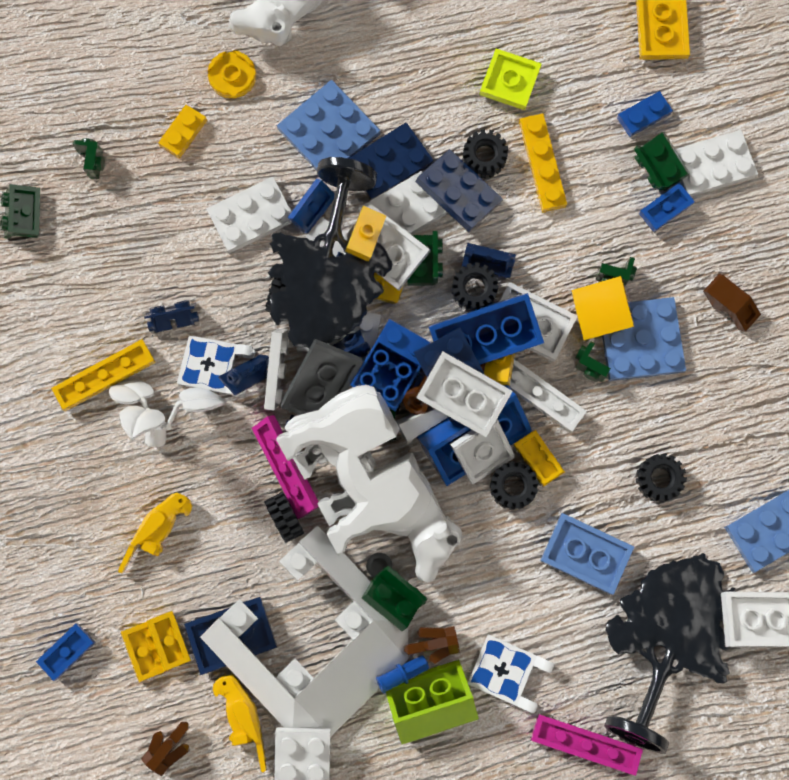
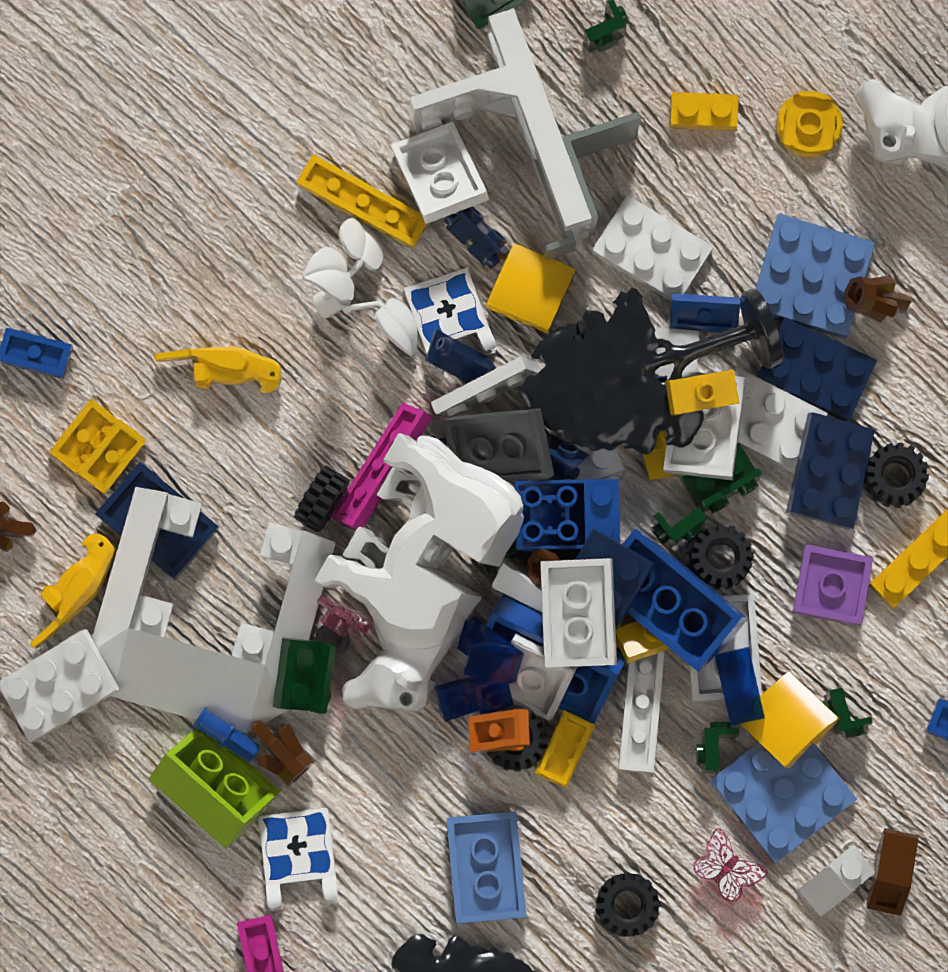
camera: 55 degrees right, 0 degrees up
(97, 232) = (518, 92): none -> white piece
(116, 314) = (439, 172): none -> white plate
(228, 303) = (530, 288): none -> yellow slope
(367, 98) = (875, 297): none -> reddish brown rock
(370, 553) = (339, 618): none -> clear pink animal
(444, 298) = (687, 528): none -> dark green bracket
(452, 468) = (488, 653): none -> clear blue slope
(469, 495) = (472, 695): none -> clear blue slope
(496, 260) = (769, 555): dark blue hinge -> none
(508, 492) = (499, 731): none -> orange slope
(531, 232) = (832, 585): none -> medium lavender plate
(565, 323) = (739, 686): none -> clear blue slope
(674, 401) = (727, 868): none -> animal
(717, 340) = (836, 881): none -> white slope

